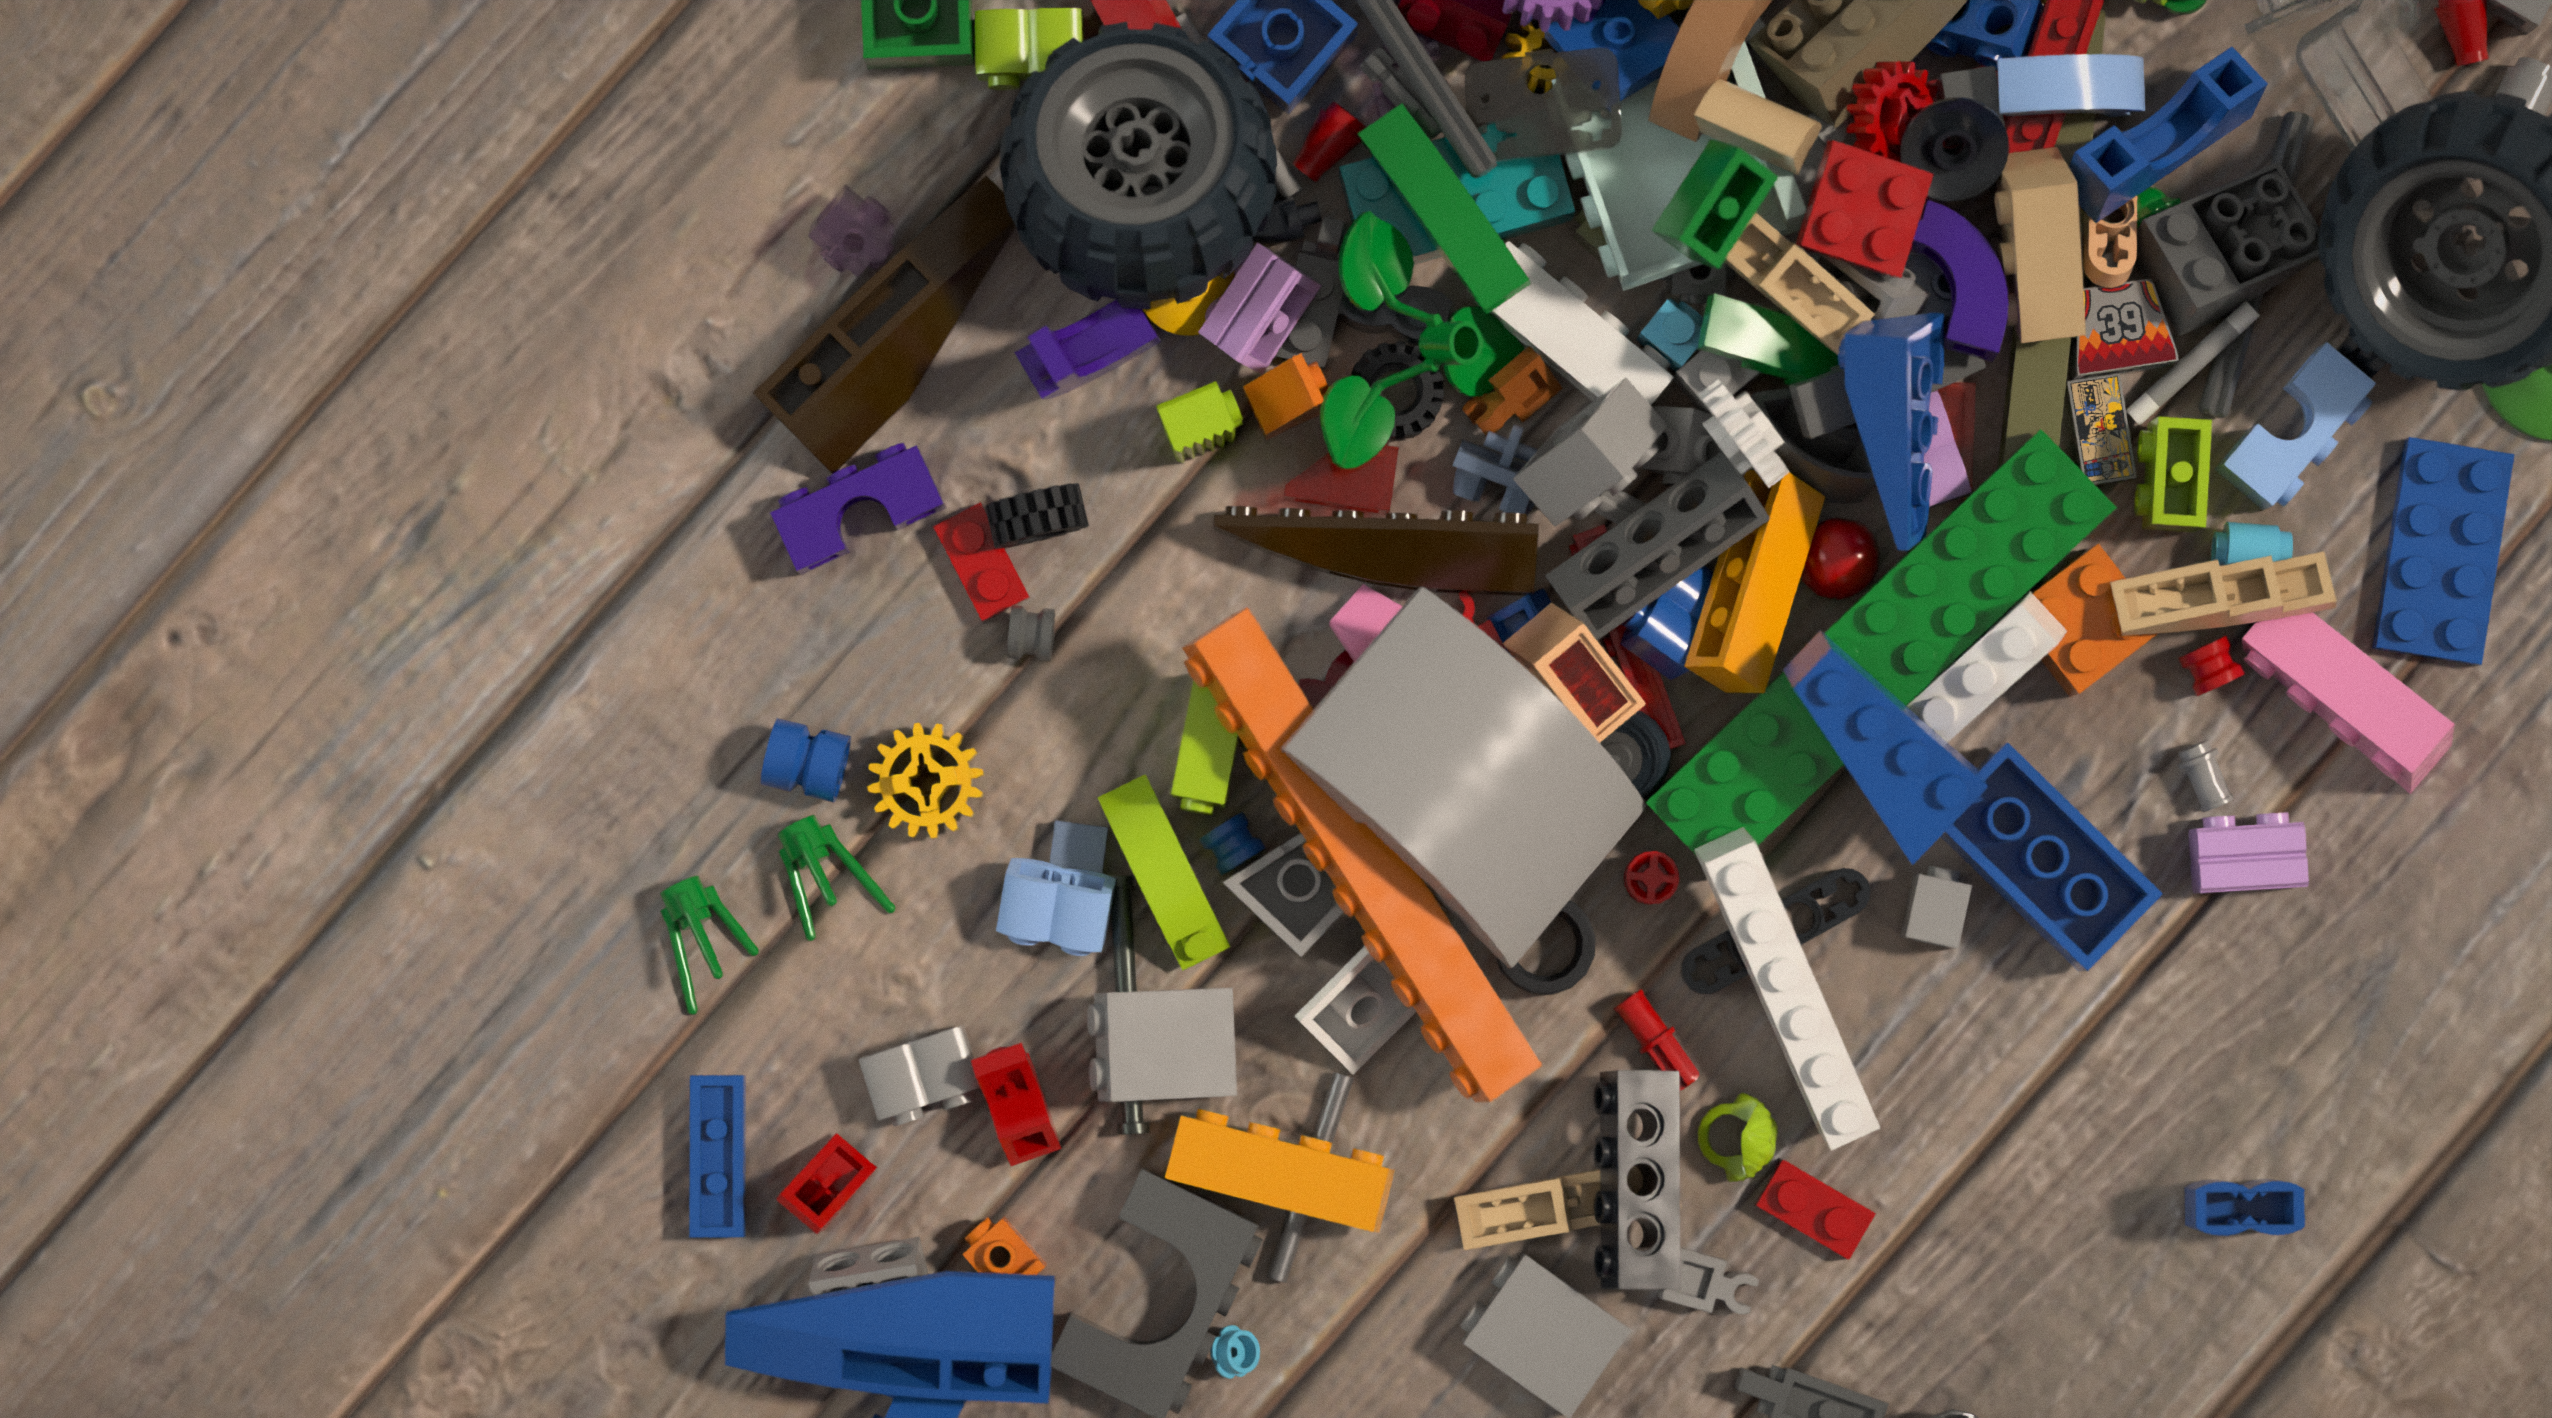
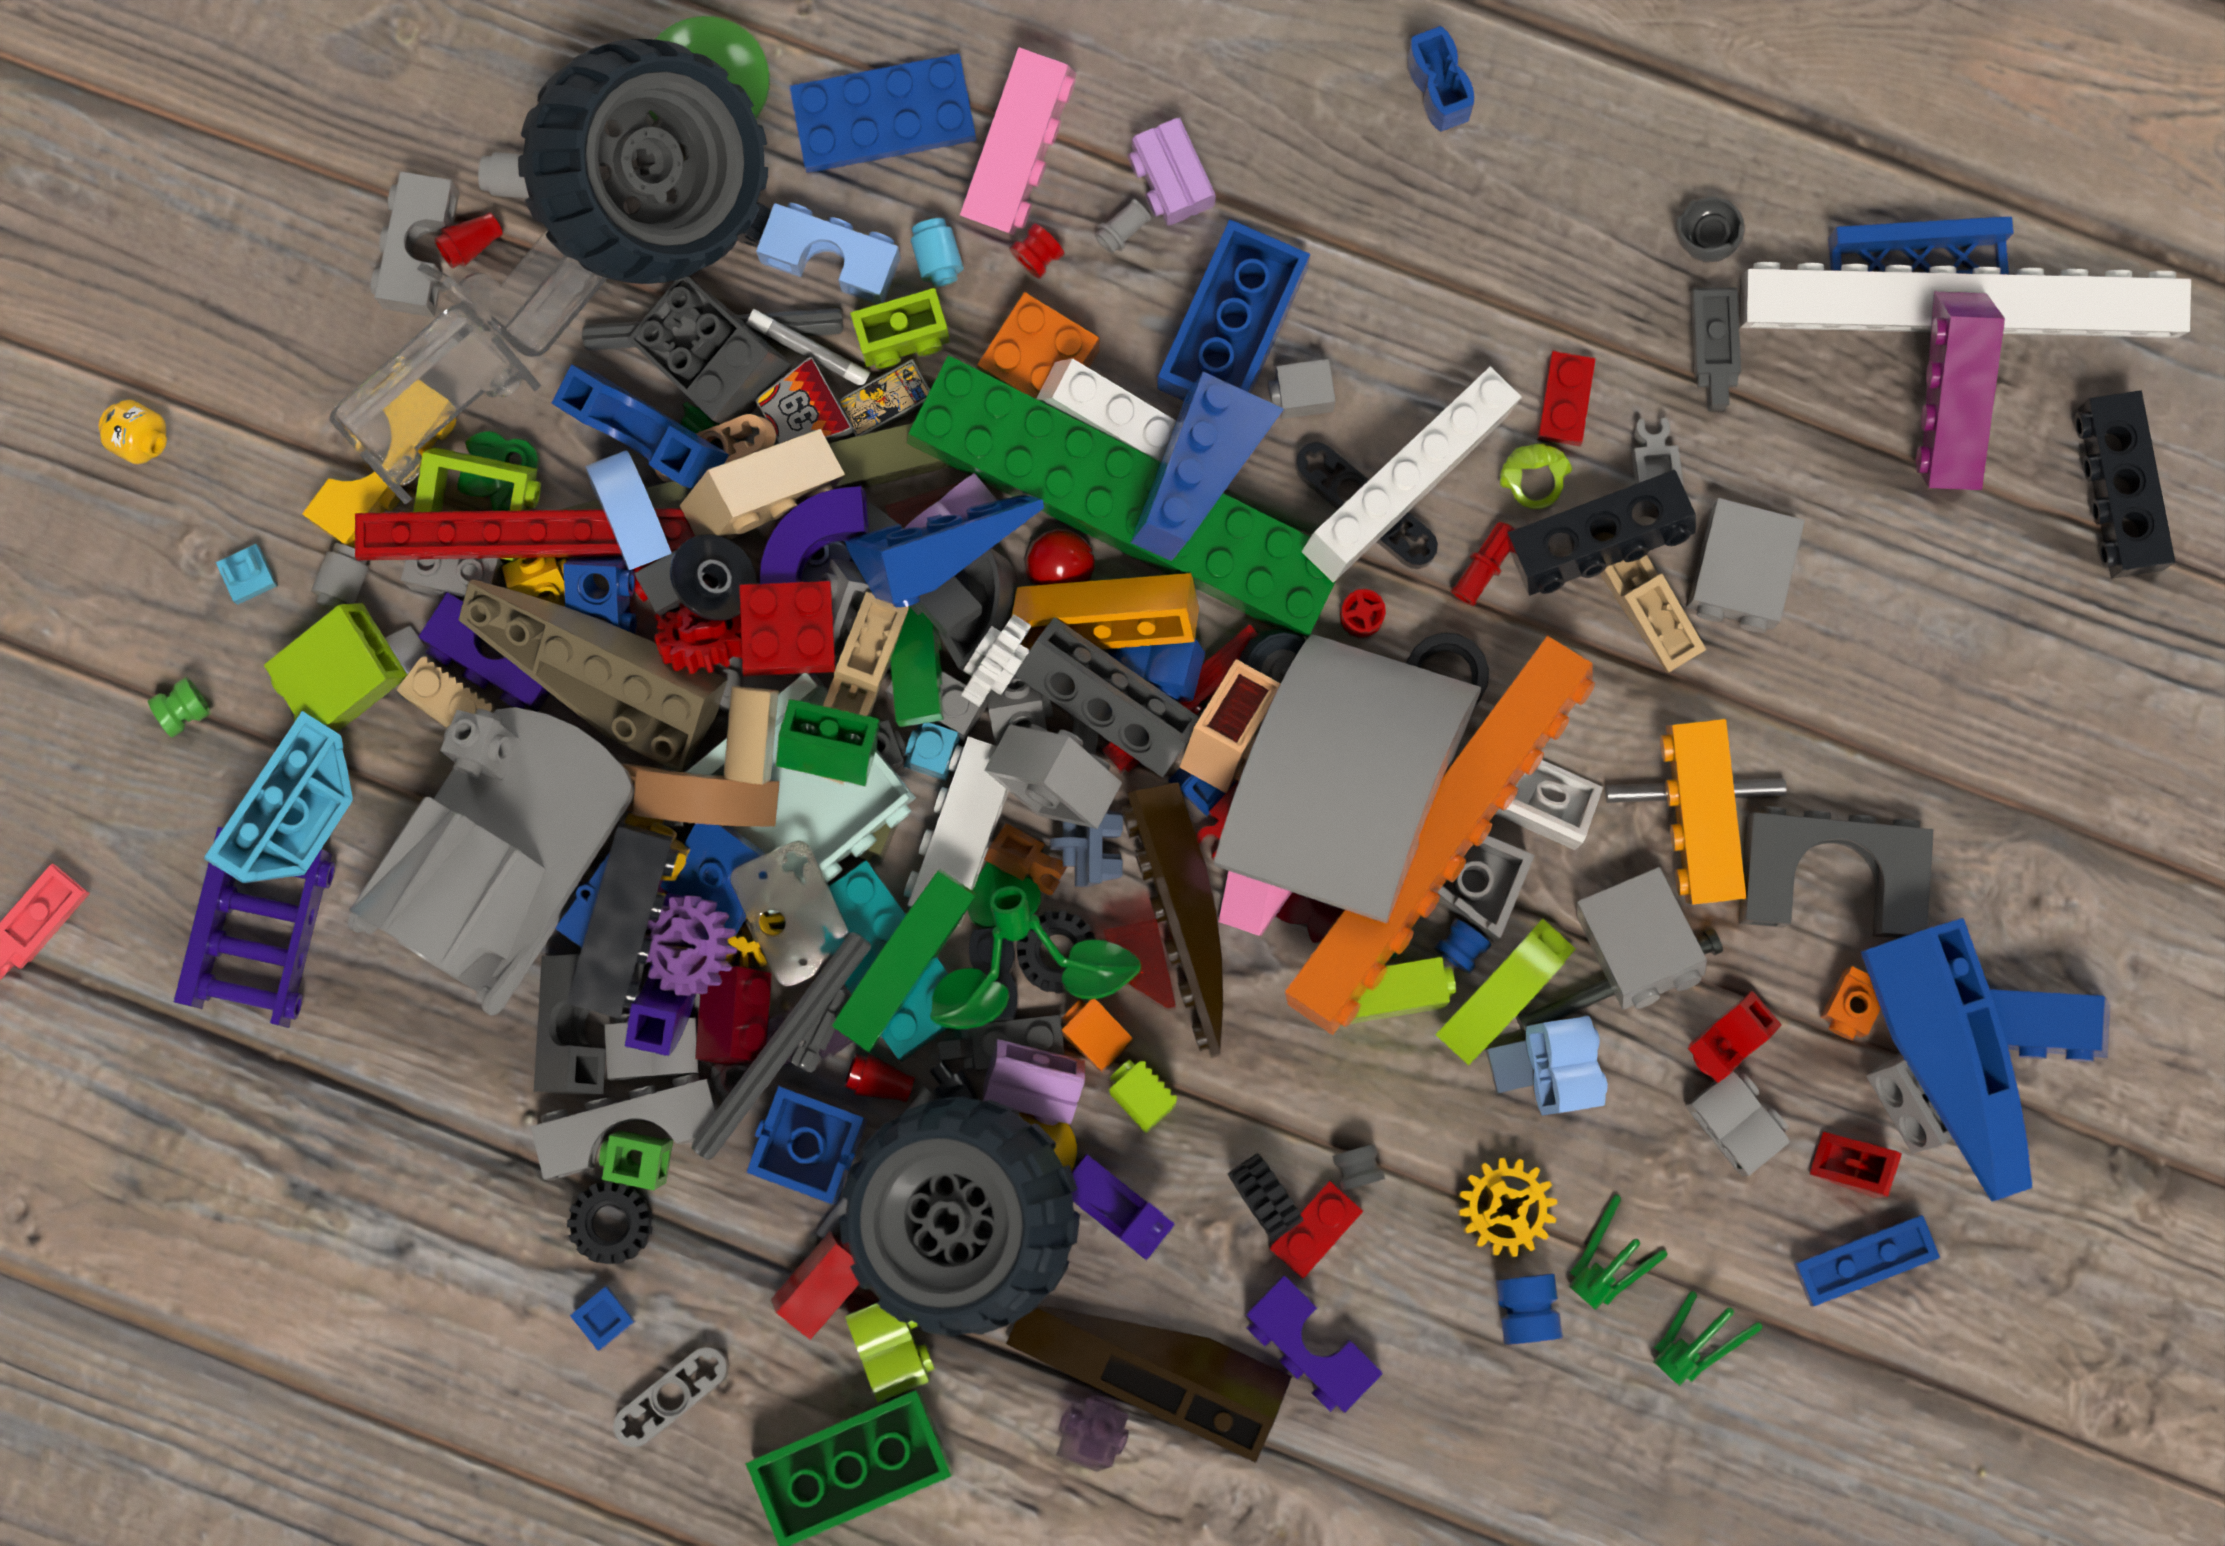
camera: 110 degrees left, 5 degrees down
(1235, 1352) = (1854, 796): medium azure plate -> none
(2223, 595) = (982, 256): tan slope -> none

